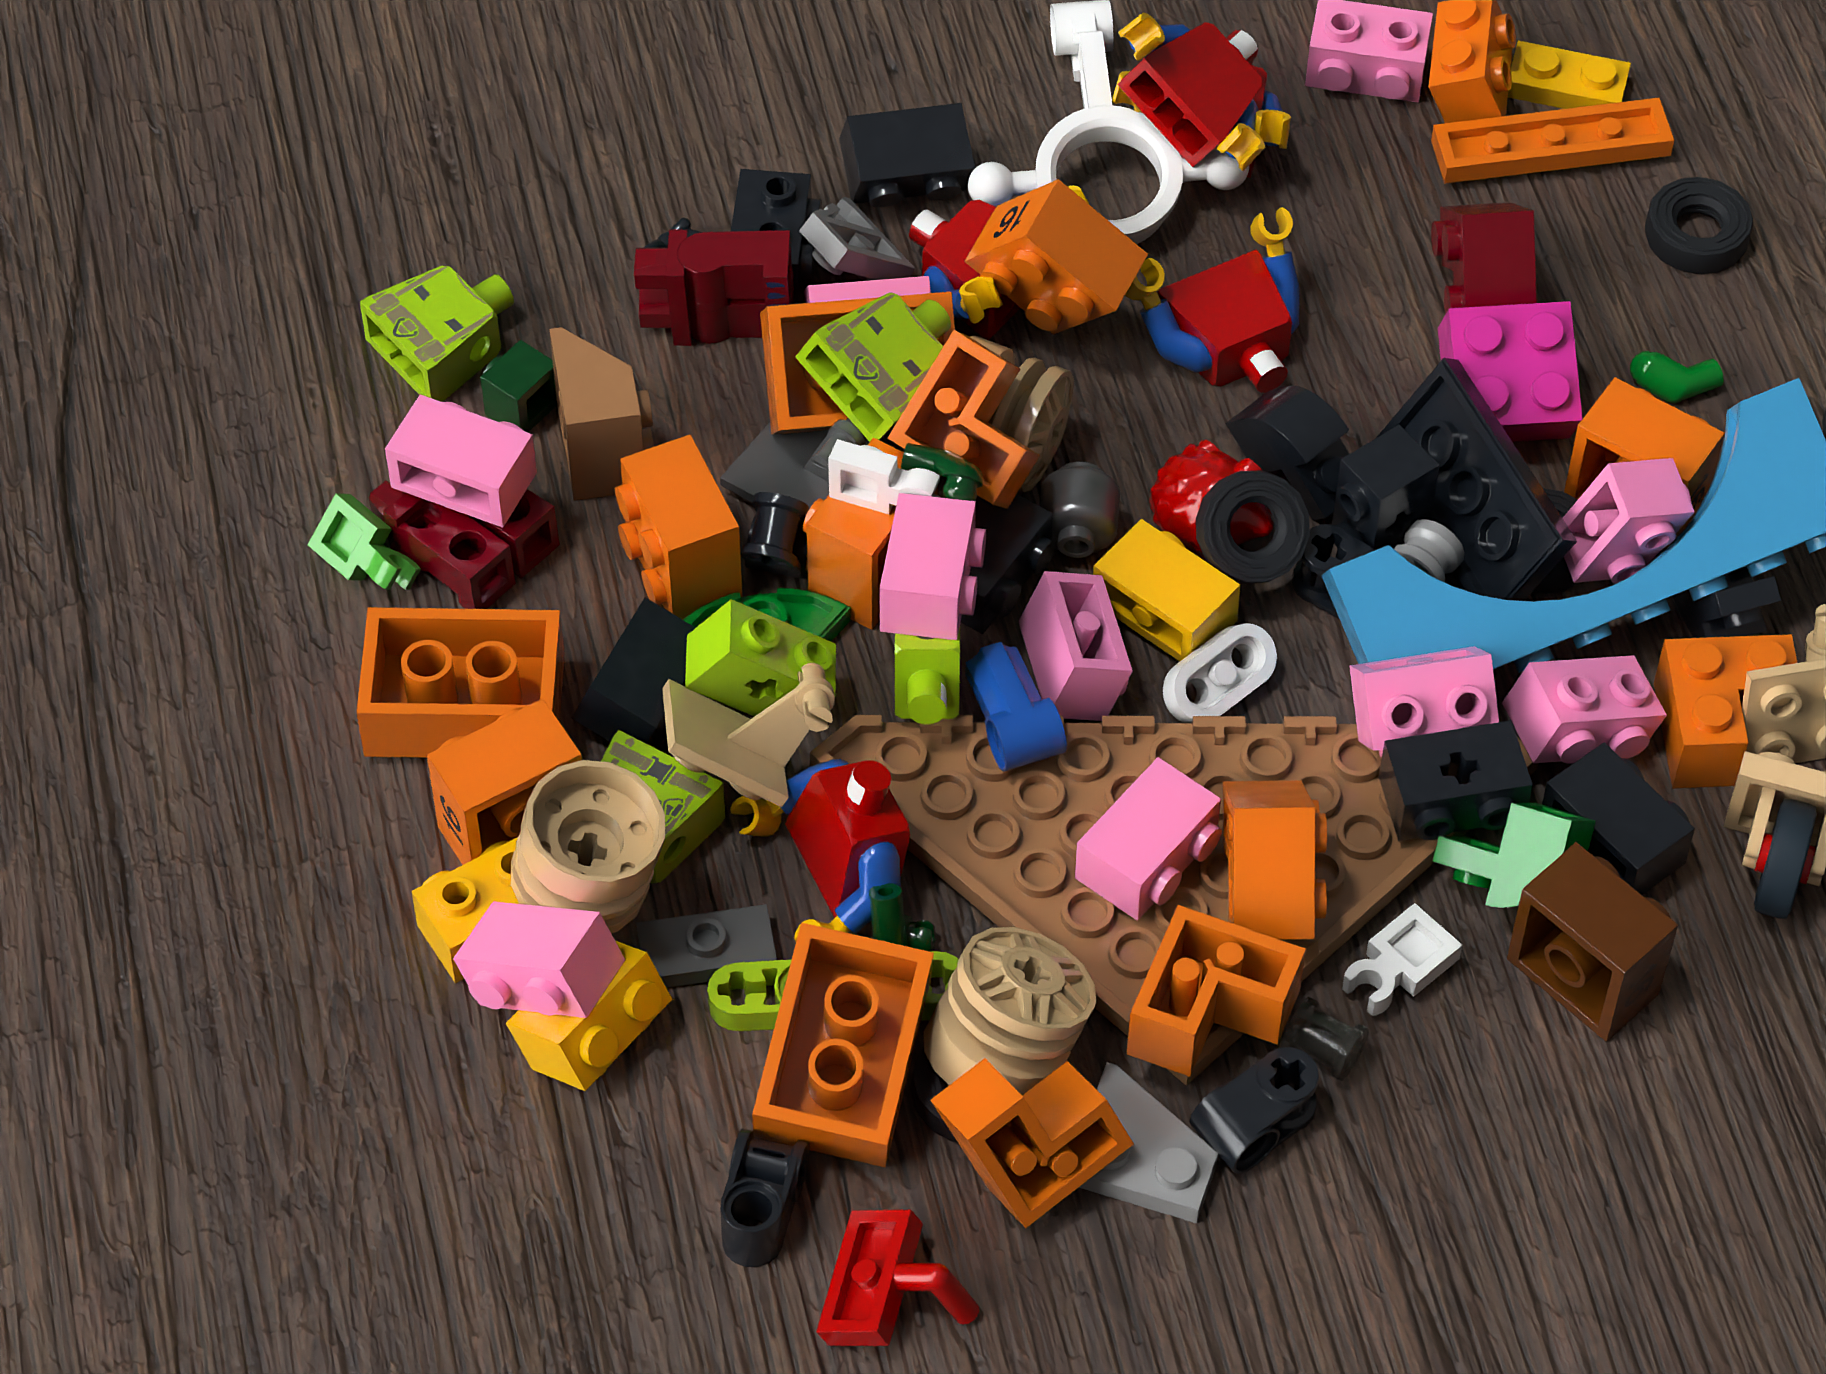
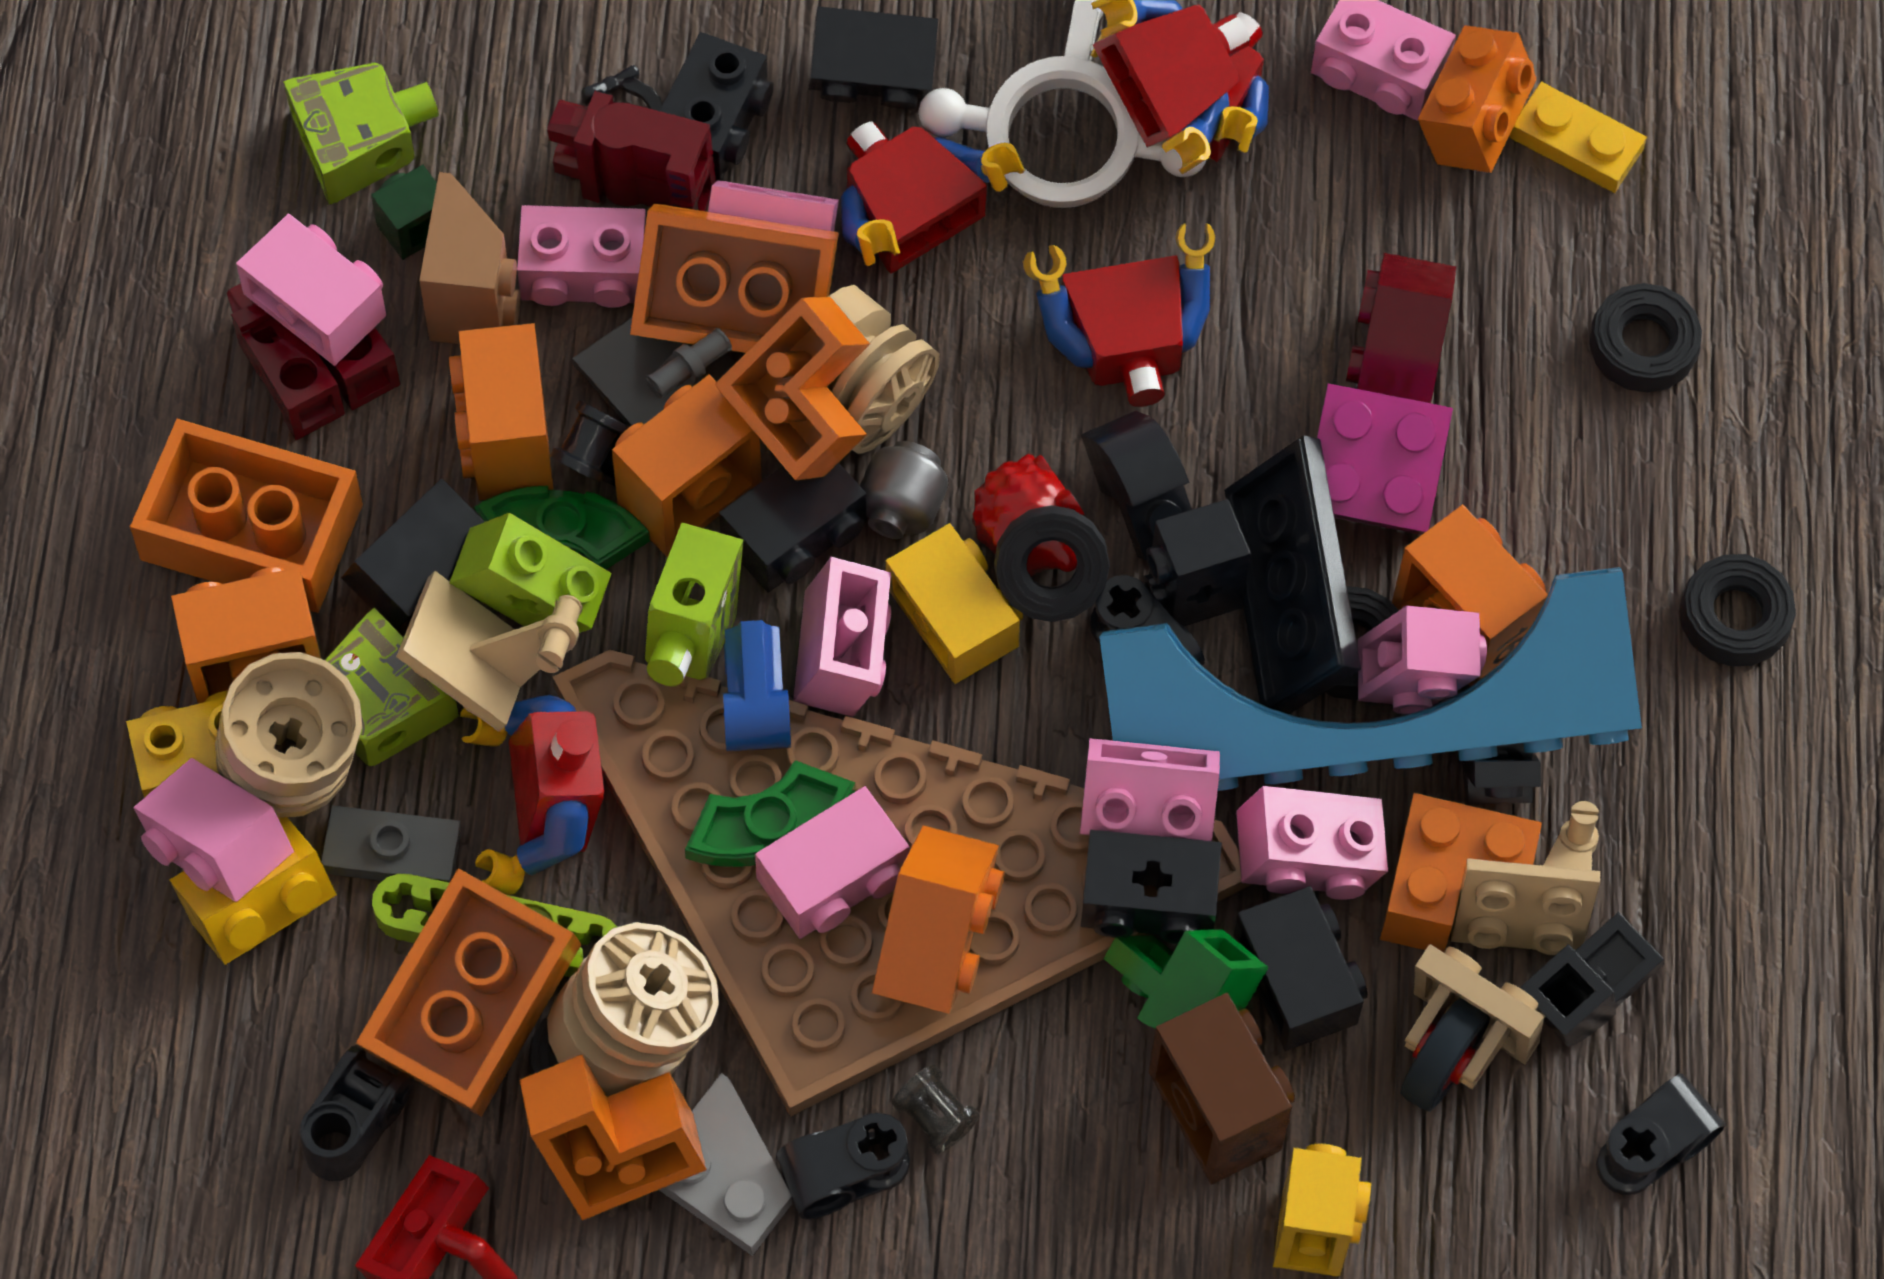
camera: 15 degrees right, 10 degrees up
(354, 541) = (199, 336): plate -> none
(701, 384) = (580, 254): none -> bright pink brick
(853, 244) = (785, 140): light grey wing -> none
(872, 478) = (684, 424): white plate -> none
(876, 359) = (734, 295): lime torso -> none
(892, 925) = (570, 884): dark green arm -> none
(929, 566) = (706, 532): bright pink brick -> none
(958, 474) = (756, 431): dark green arm -> none
(1047, 835) = (739, 827): none -> green tile
(1056, 257) = (961, 222): orange brick -> none
(1208, 976) = (825, 1023): orange brick -> none
(1214, 674) = (974, 703): white plate -> none
(1404, 953) = (1048, 1044): white plate -> none
(1432, 548) = (1223, 634): light grey wheel -> none
(1552, 140) = (1532, 204): orange plate -> none
(1673, 380) = (1549, 503): green arm -> none
(1729, 1023) = (1320, 1210): none -> yellow brick

